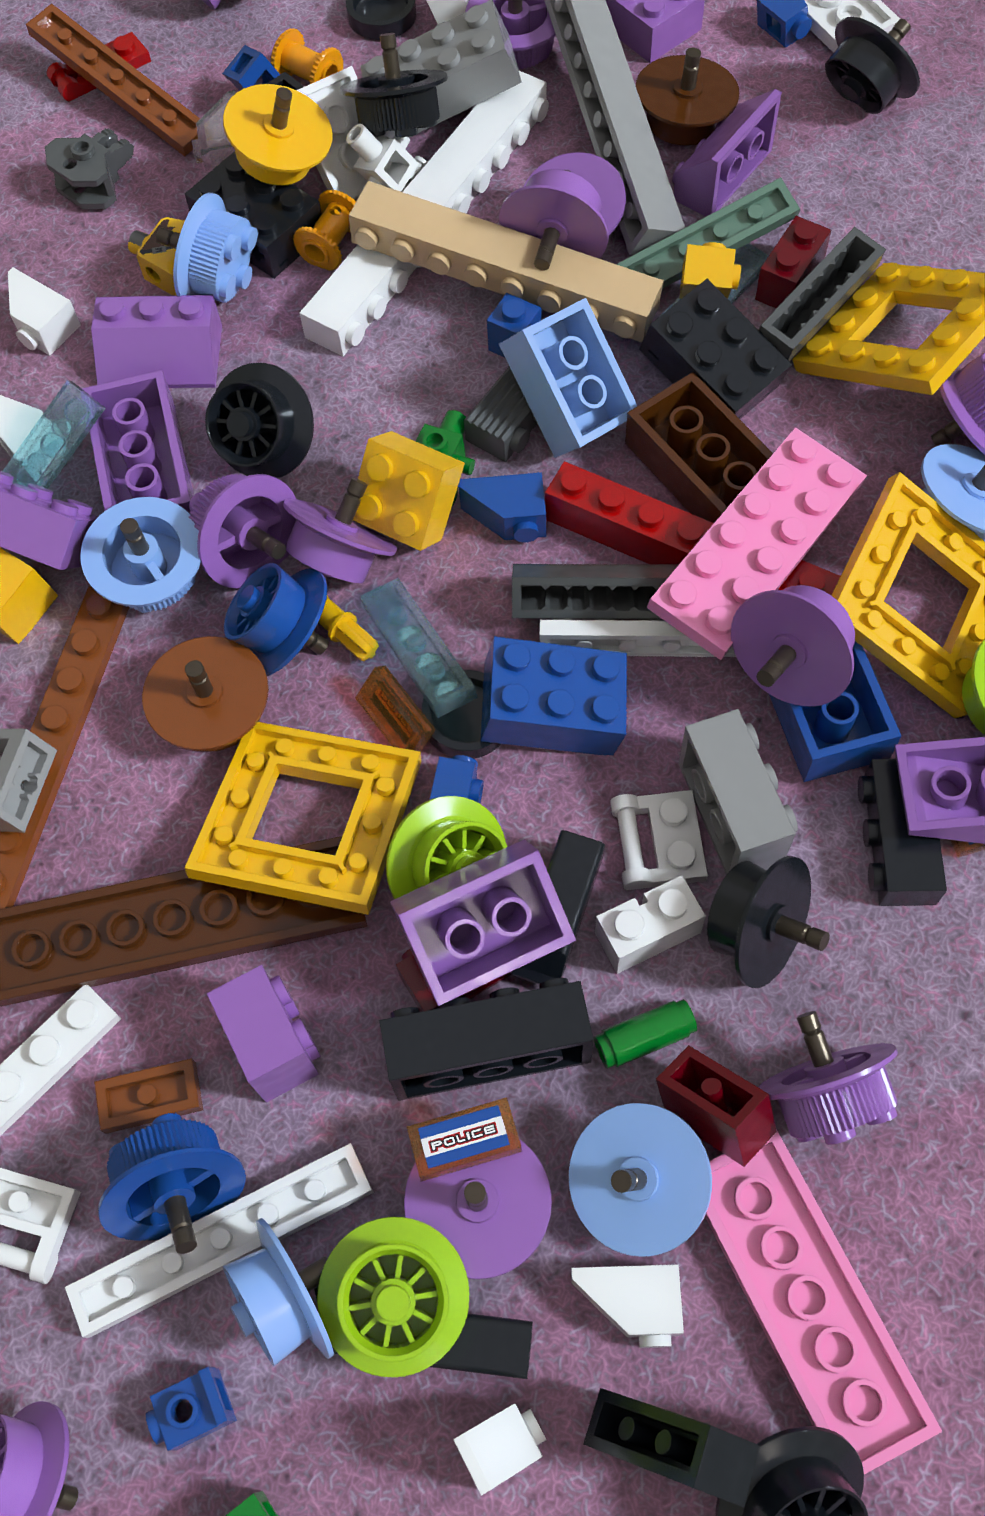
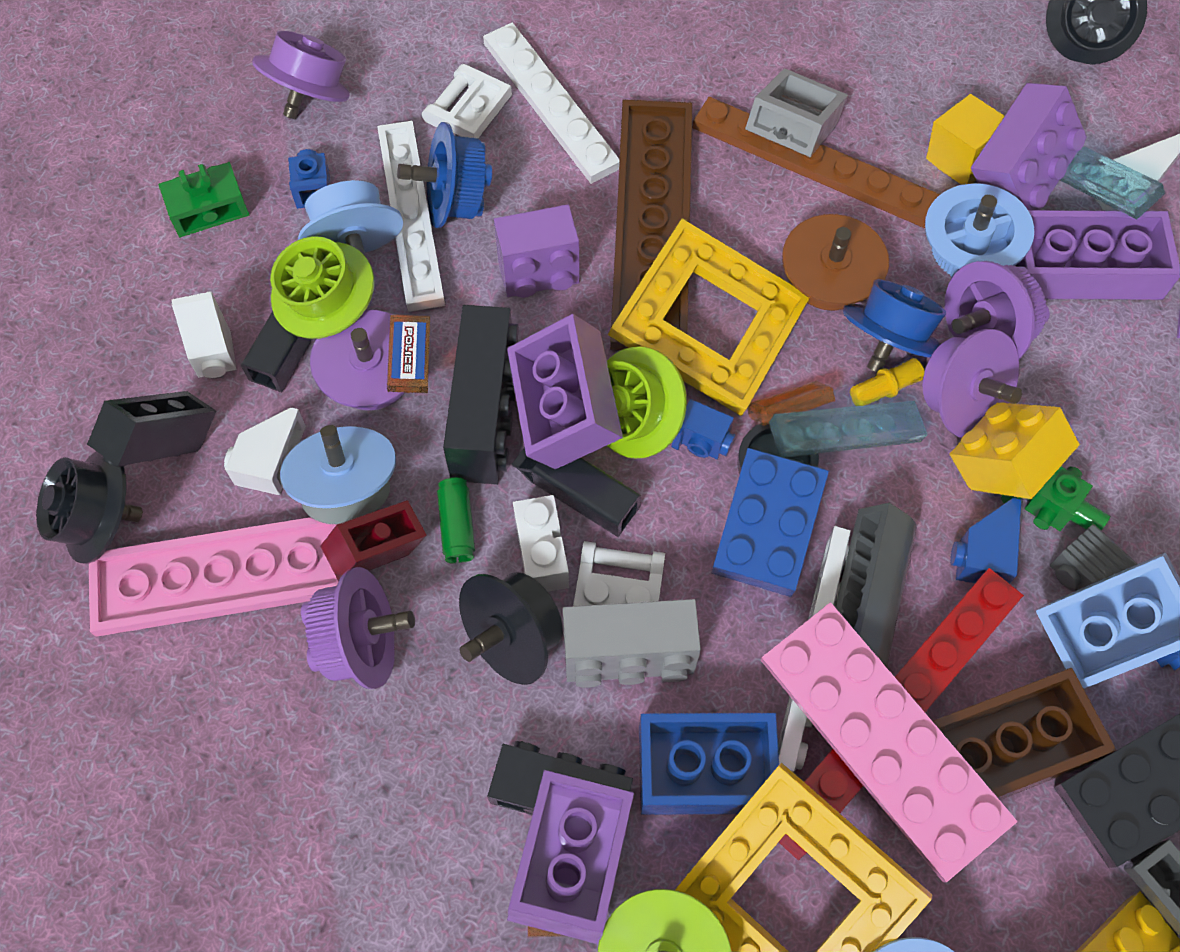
camera: 100 degrees right, 0 degrees up
(147, 1094) = (524, 183): dark orange plate -> none
(260, 420) = (1114, 344): black piece -> none
(795, 644) = (749, 716): medium lavender piece -> none

